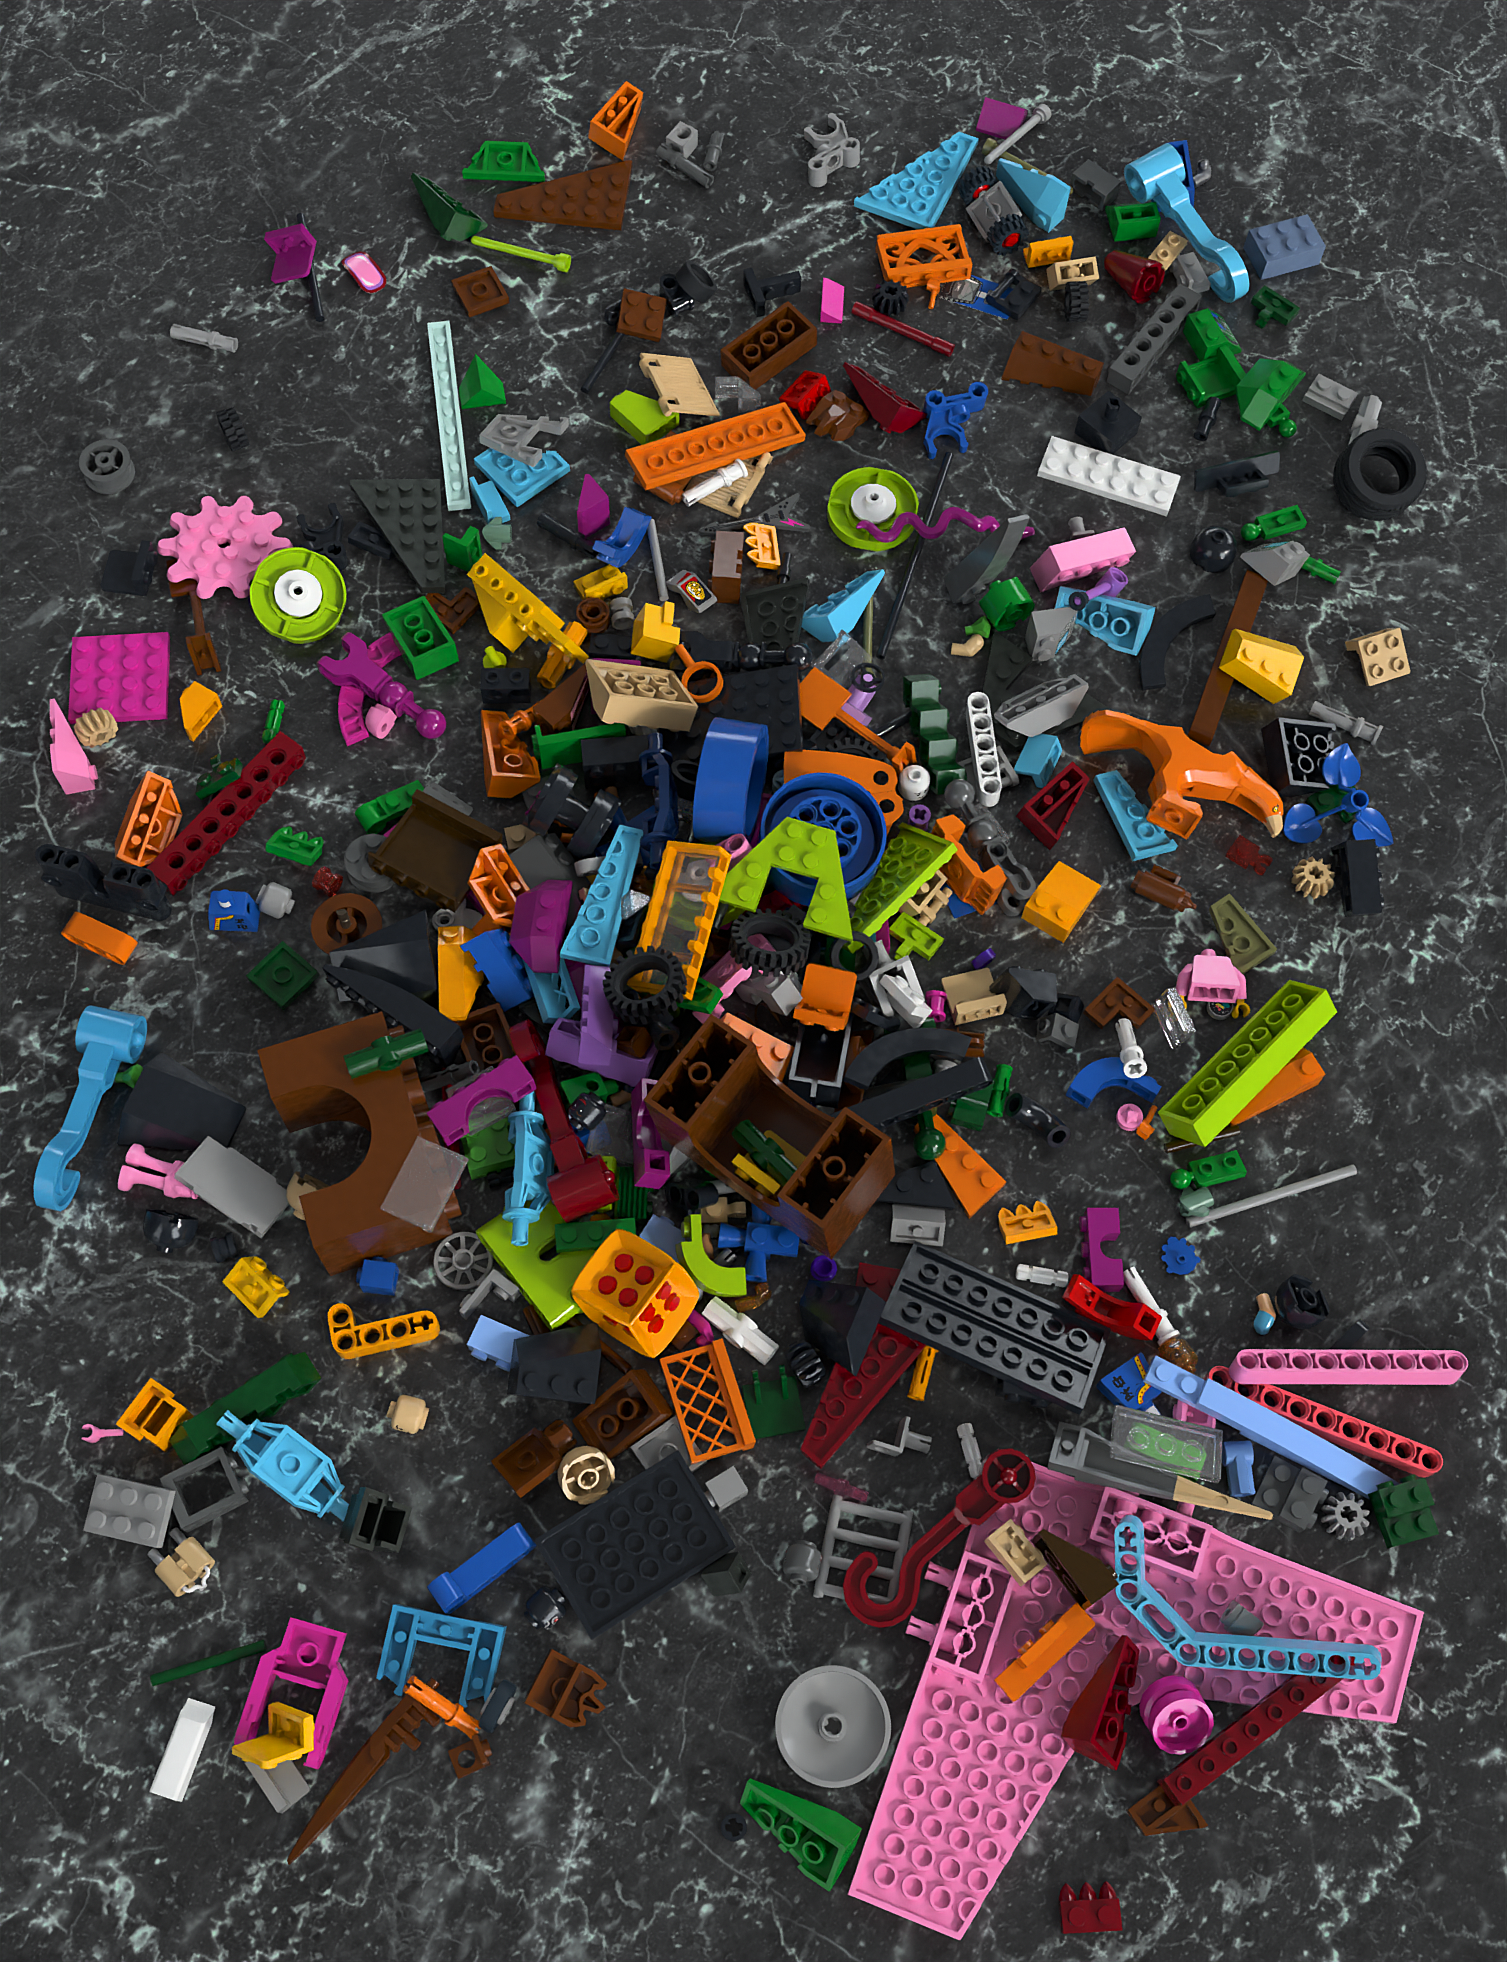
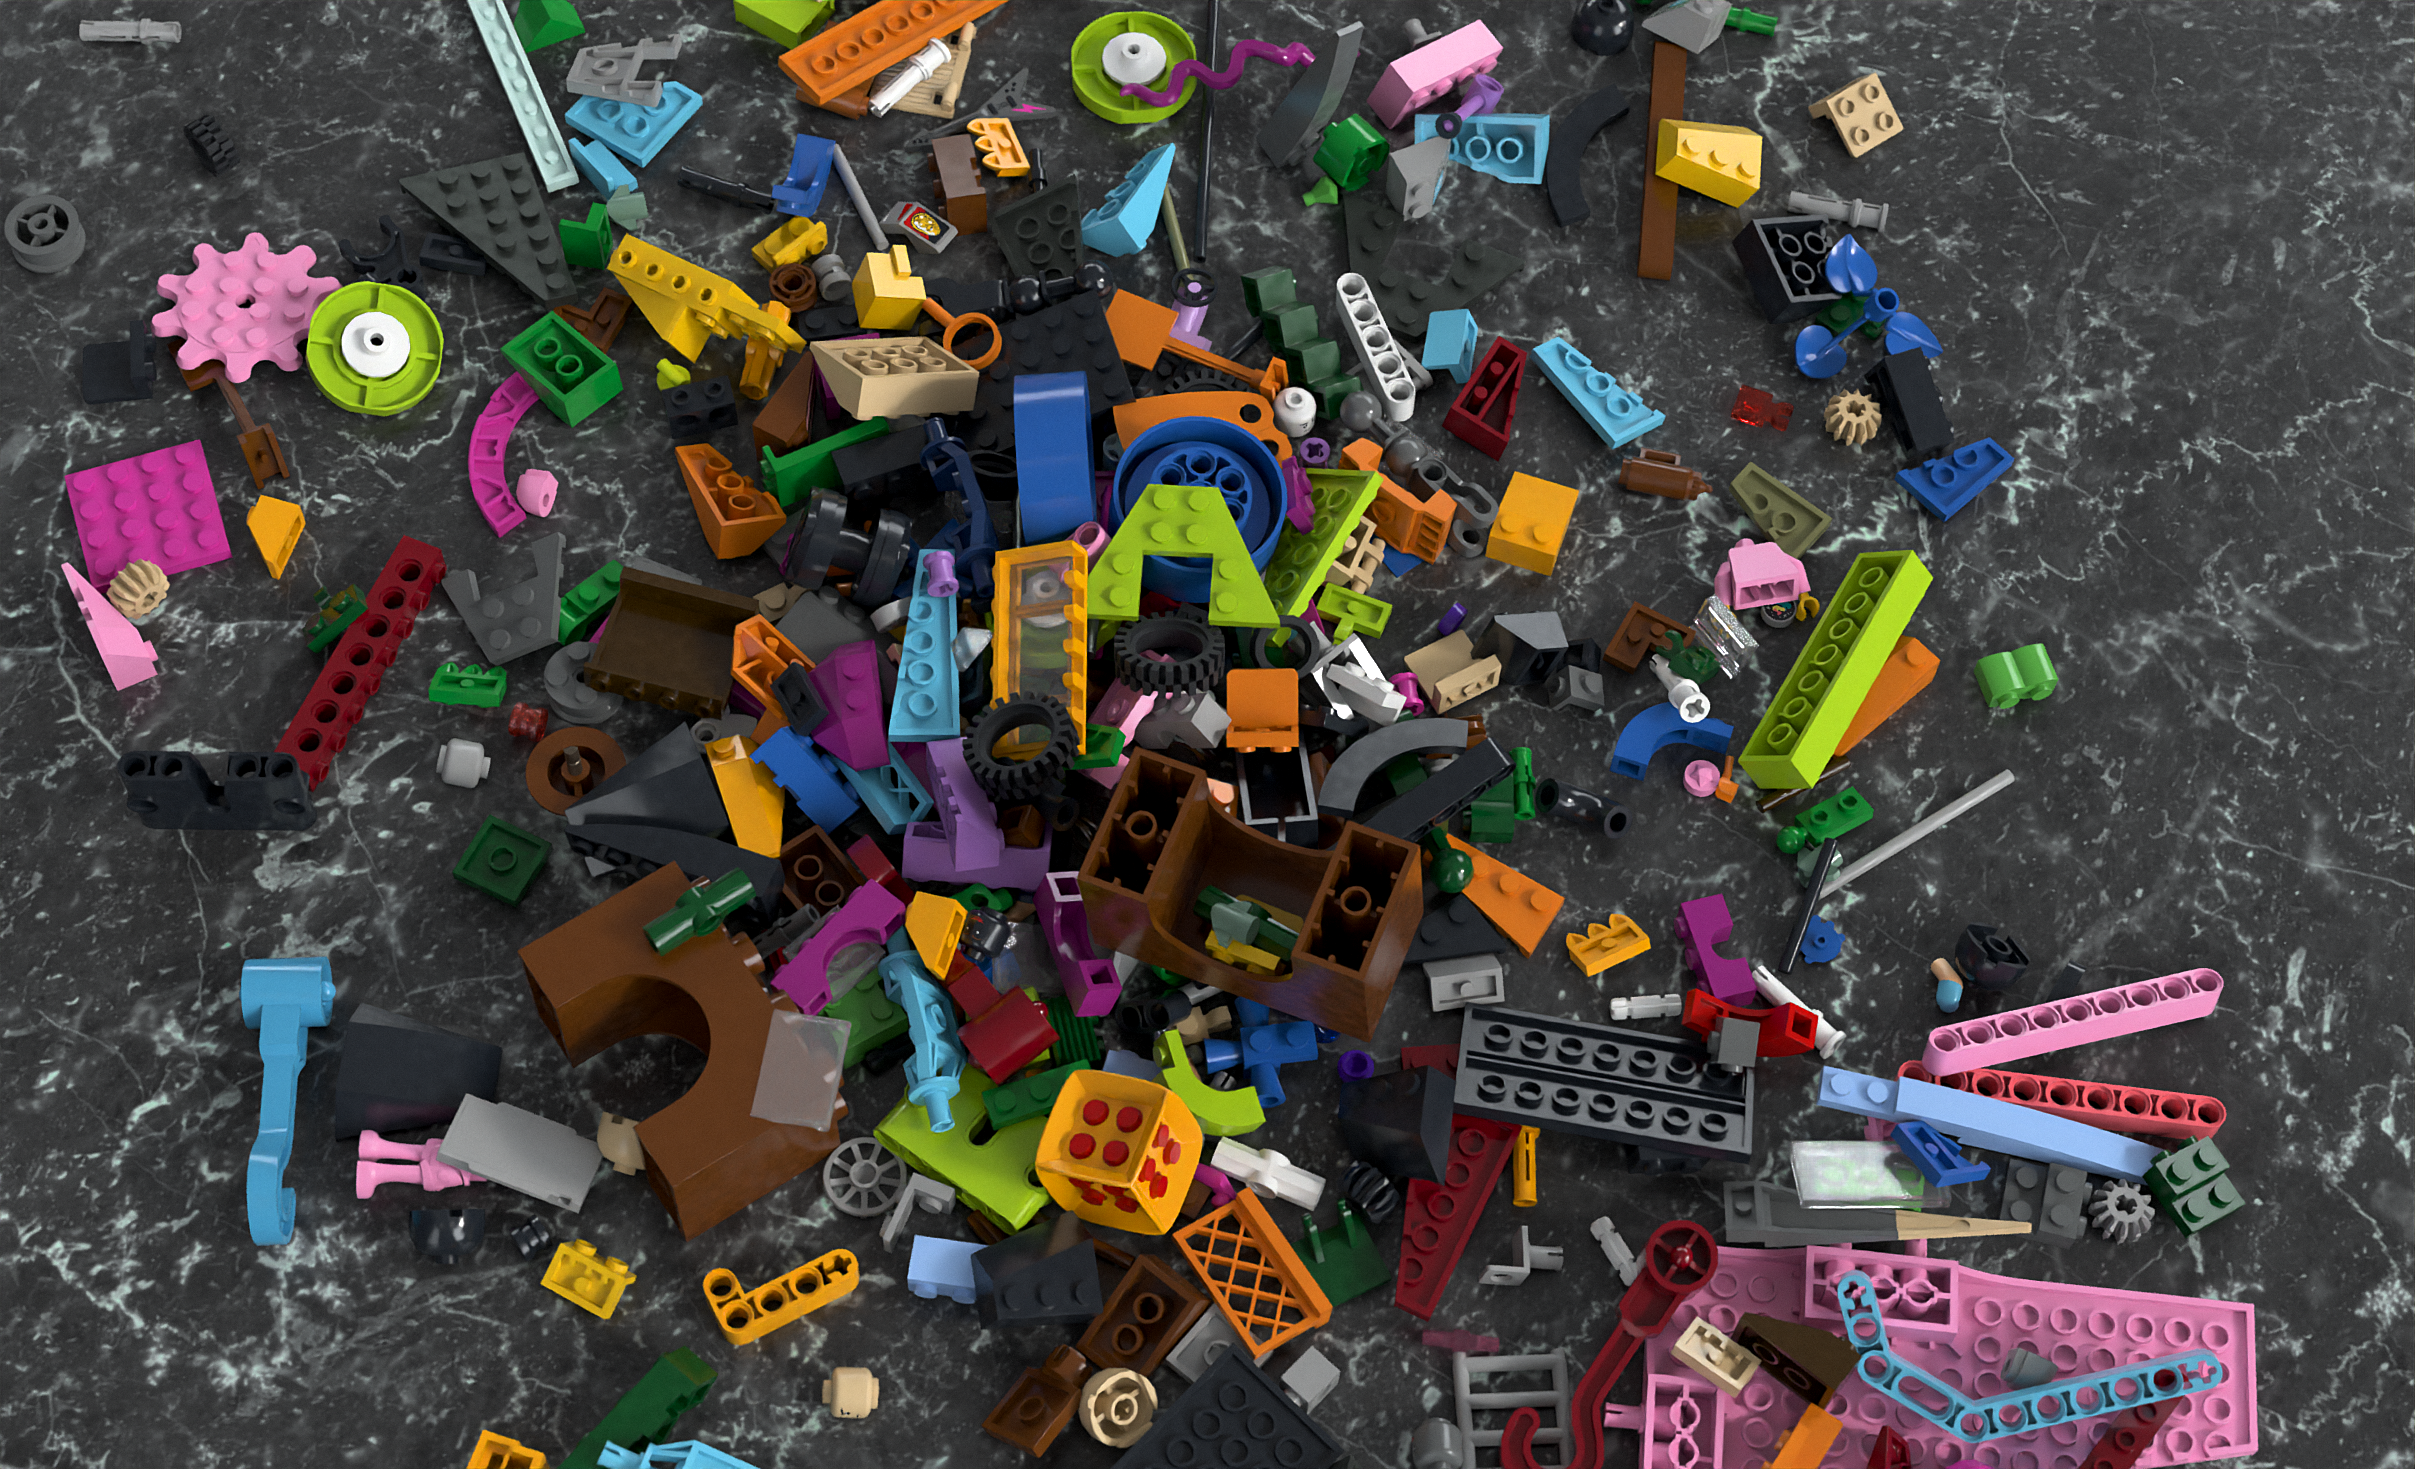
camera: 15 degrees left, 5 degrees down
(99, 938) = (227, 870): orange beam -> none
(130, 1076) = (328, 1045): bright green rock -> none
(148, 822) = (251, 695): orange wedge -> none
(233, 911) = (407, 791): blue torso -> none
(273, 720) = (385, 526): green axle -> none
(340, 806) = (519, 616): none -> dark grey wing
(377, 684) = (520, 443): magenta piece -> none
(378, 1276) = (755, 1224): blue brick -> none
(507, 913) = (799, 699): none -> black plate
(519, 722) = (736, 449): orange pin -> none
(551, 1103) = (935, 929): none -> light orange slope
(593, 508) = (754, 143): magenta slope -> none
(627, 846) = (940, 574): none -> medium lavender bush
(755, 1153) = (1234, 923): none -> sand green piece
(755, 1300) = (1277, 1129): clear orange arm -> none
(842, 670) = (1158, 281): clear plate -> none
(896, 845) = (1299, 490): none -> magenta plate
(970, 648) = (1316, 222): tan arm -> none
(1042, 706) = (1439, 272): light grey wedge -> none
(1095, 1321) = (1733, 1043): none -> dark grey brick
(1127, 1388) = (1797, 1116): blue torso -> none
(1143, 1033) = (1691, 663): none -> dark green plate
(1179, 1231) = (1808, 906): none -> black bar
(1179, 1353) = (1852, 1057): clear orange head -> none
(1183, 770) = (1645, 317): orange animal -> none
(1218, 1443) = (1936, 1155): none -> blue wing
(1238, 1458) = (1975, 1196): medium blue piece -> none
(1375, 940) = (1955, 479): none -> blue wing
(1379, 1096) = (2016, 676): none -> bright green brick

